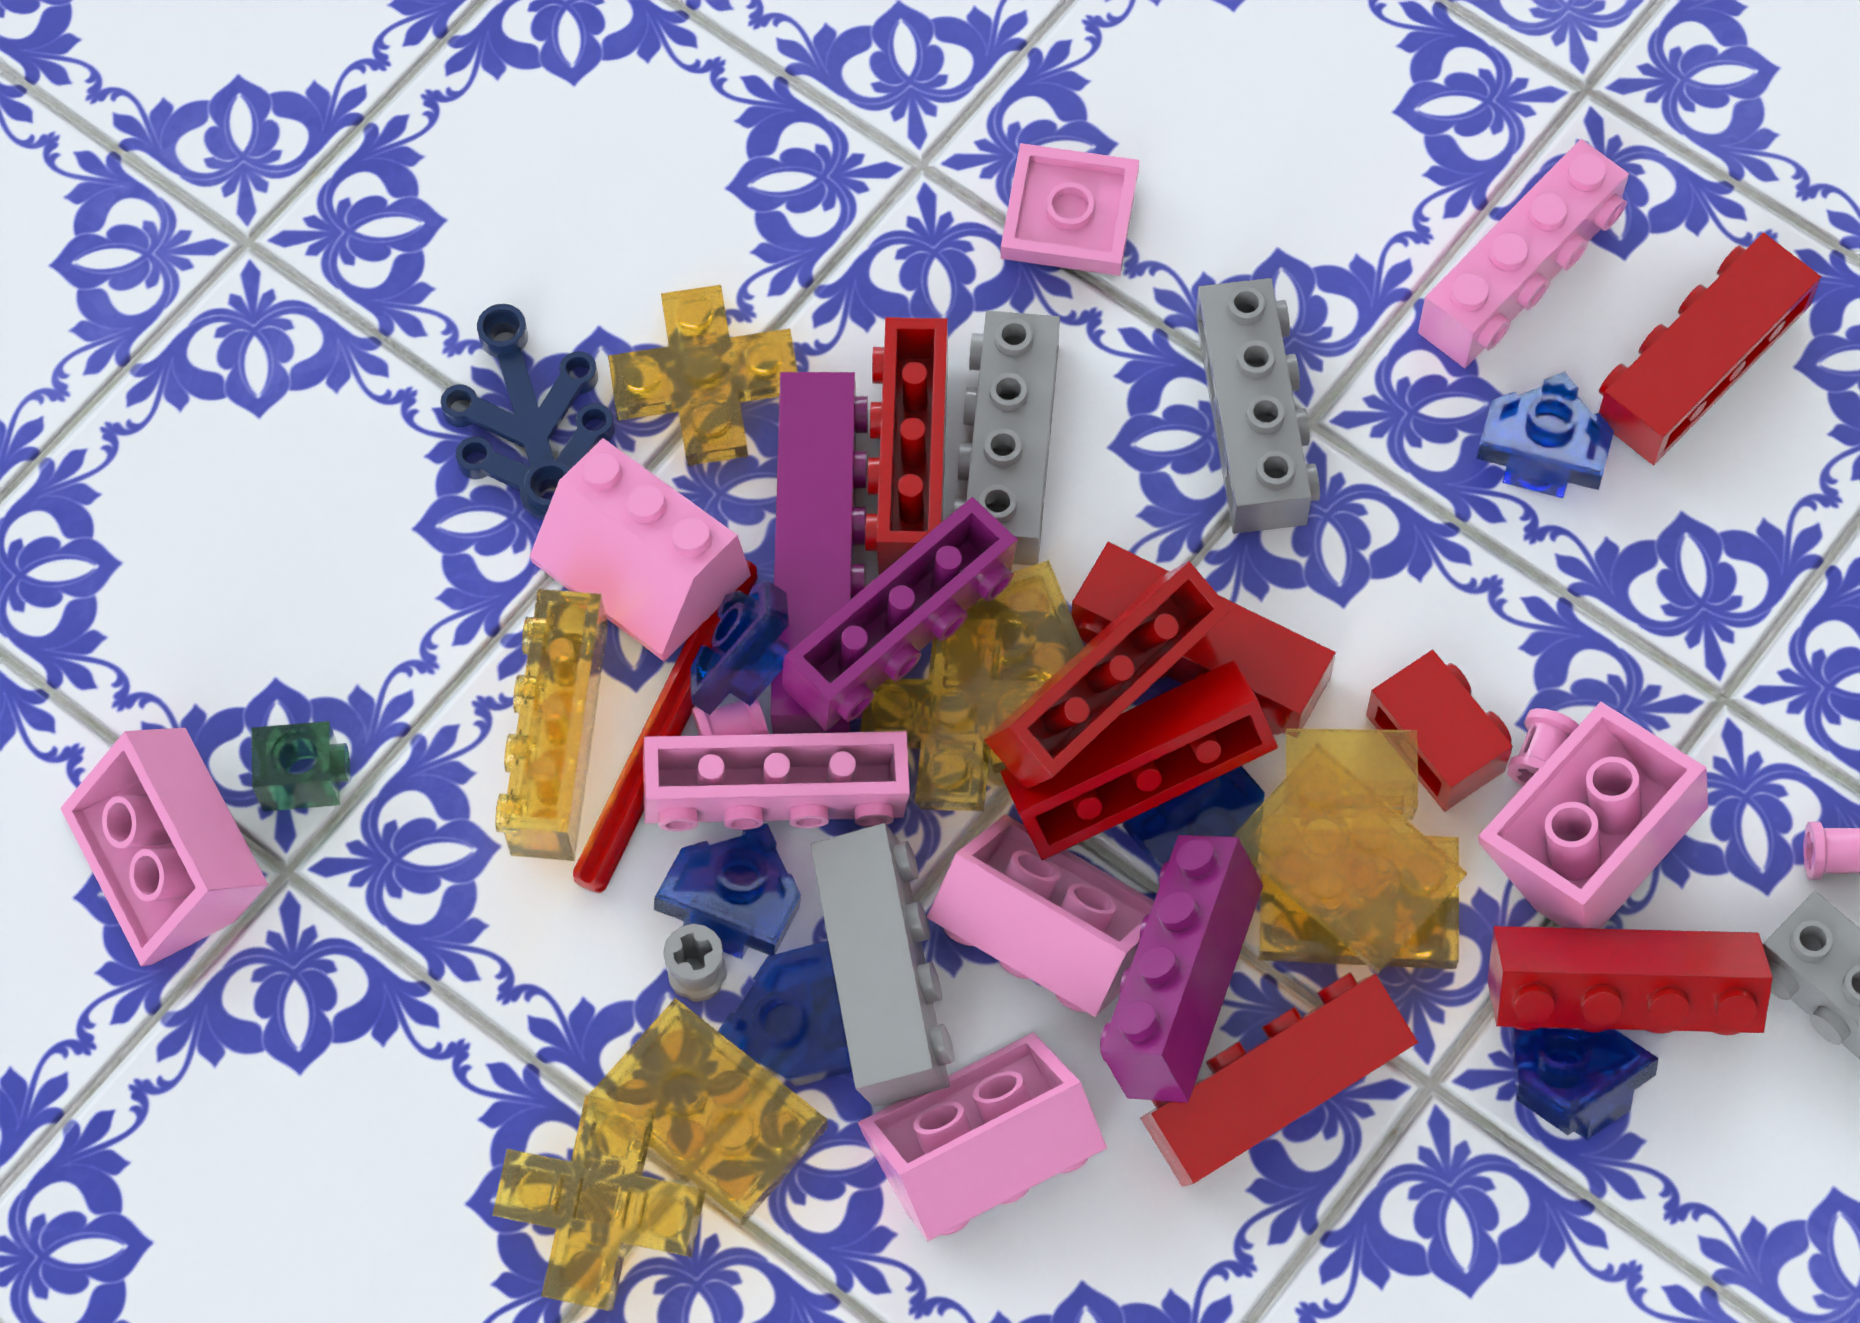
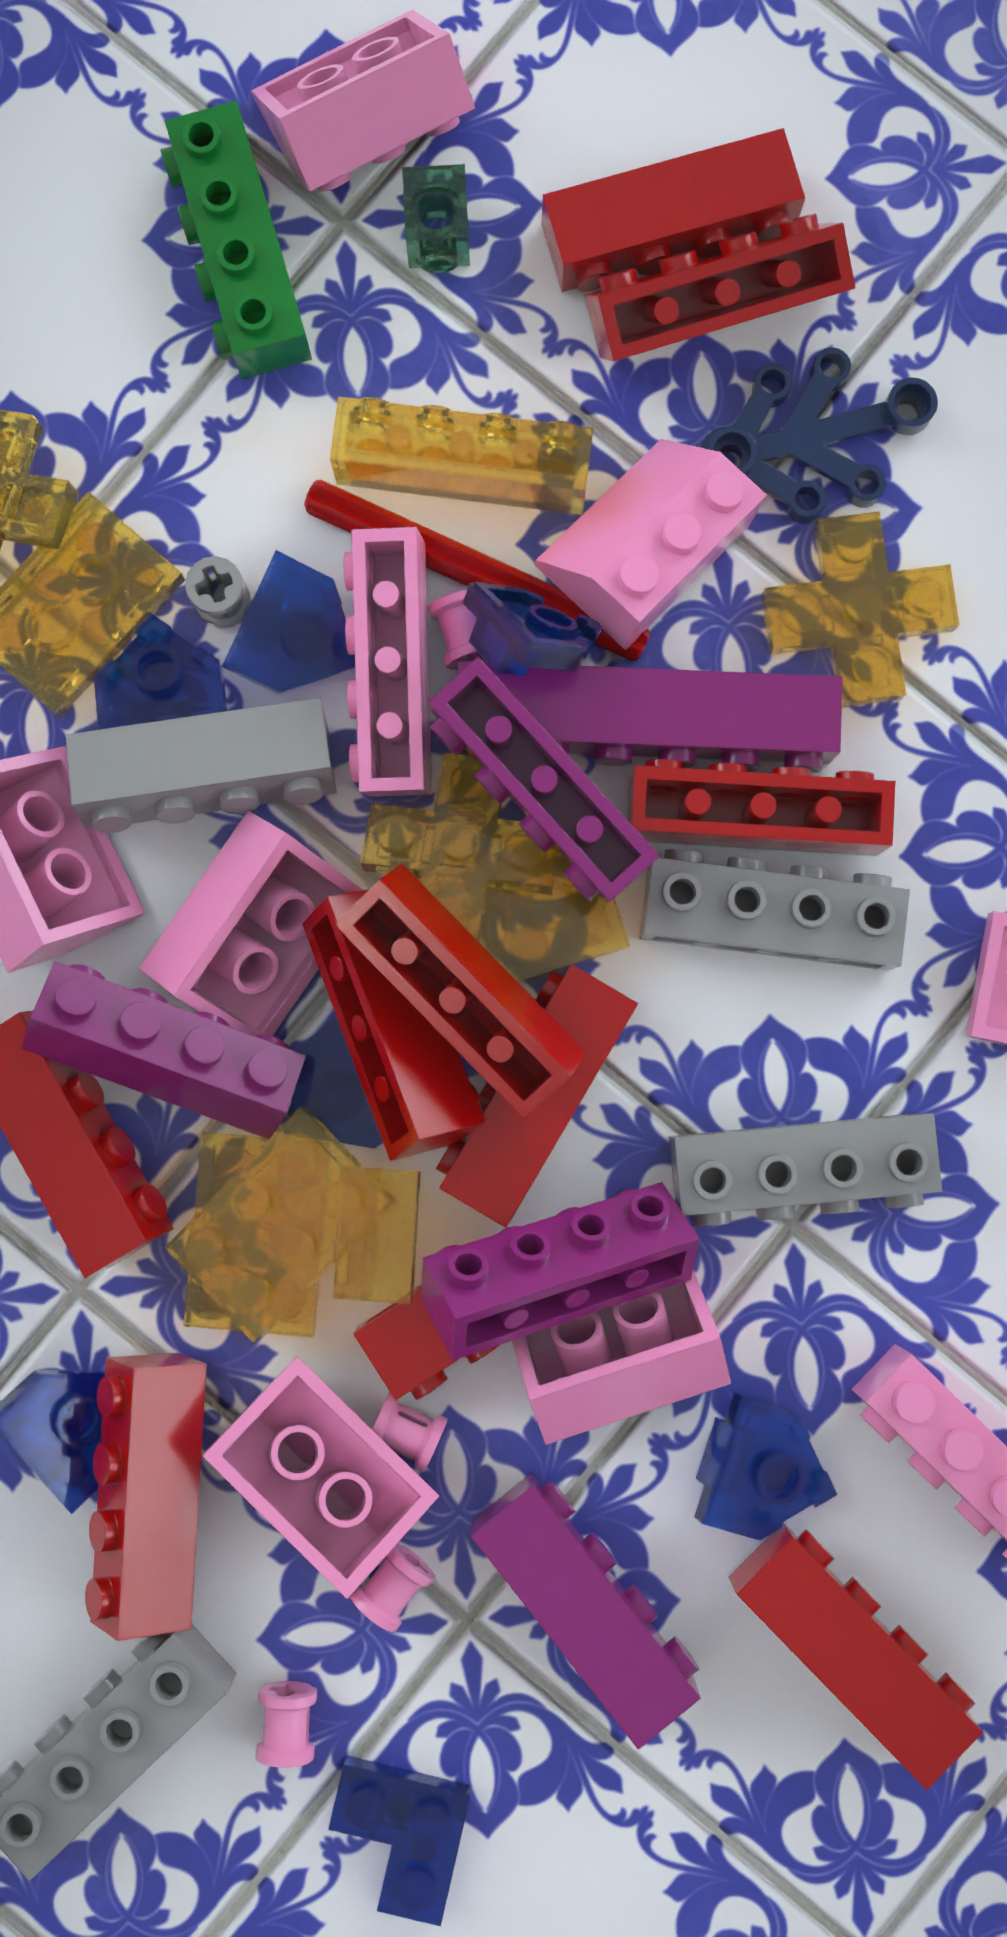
camera: 90 degrees right, 20 degrees up
(299, 548) = (671, 209): none -> red brick
(314, 961) = (237, 240): none -> green brick
(389, 494) = (721, 290): none -> red brick
(1371, 597) = (557, 1269): none -> magenta brick
(1437, 561) = (622, 1361): none -> bright pink slope
(1692, 578) = (586, 1609): none -> magenta brick
(1703, 750) = (392, 1587): none -> bright pink bush

